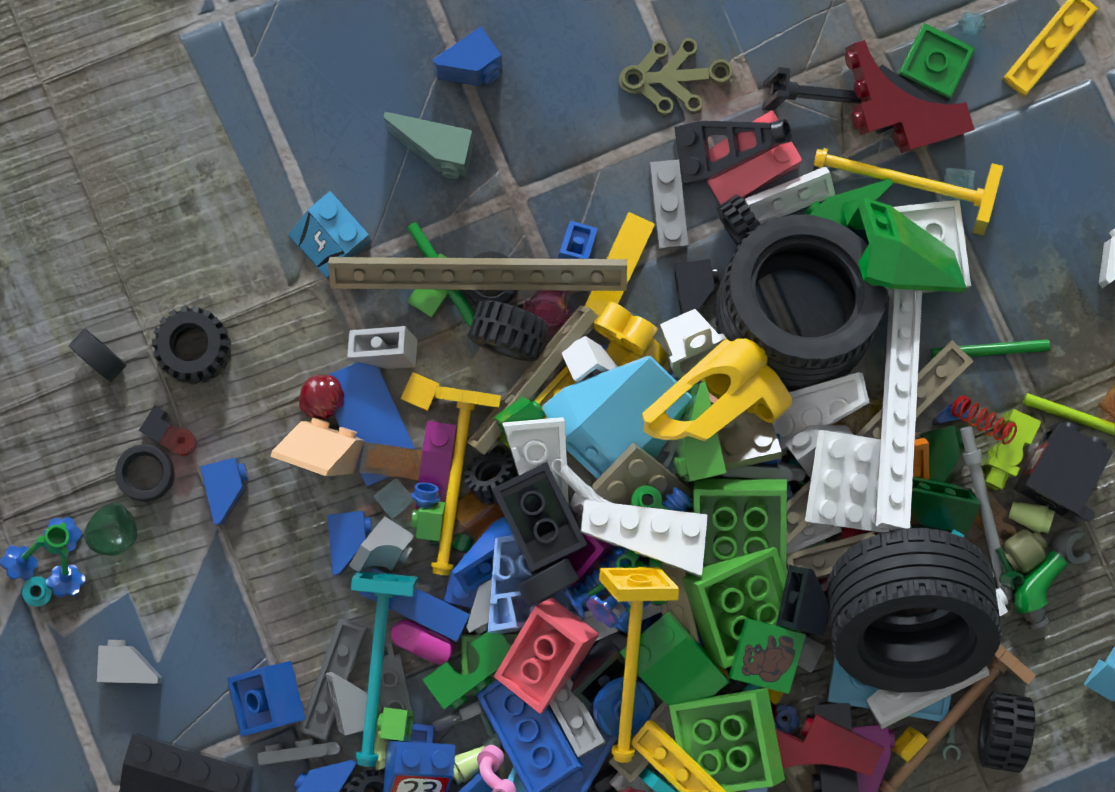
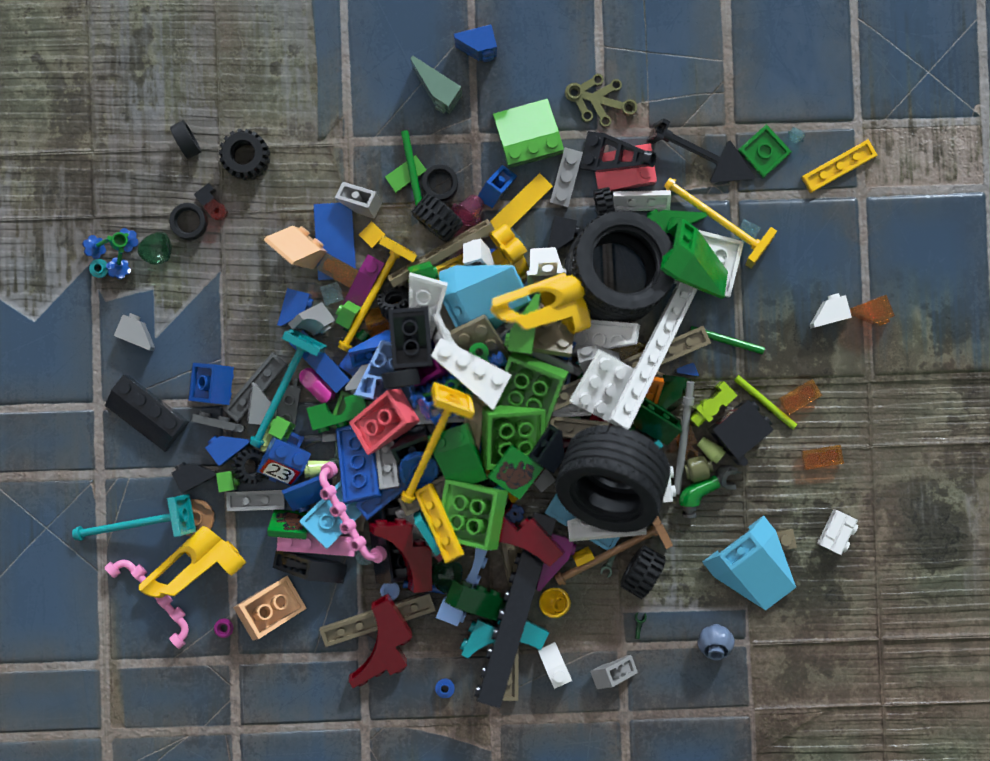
camera: 25 degrees right, 5 degrees up
(224, 487) = (232, 248): blue slope -> none
(321, 396) = (310, 215): dark red hair -> none
(328, 232) = (352, 118): dark azure slope -> none
(425, 495) = (350, 298): blue plate -> none
(478, 273) = (432, 176): dark tan plate -> none
(590, 162) = (528, 133): none -> slope
(885, 105) = (721, 166): dark red arch -> none
(965, 406) = (695, 369): red piece -> none
(1008, 576) = (682, 478): dark green hand -> none

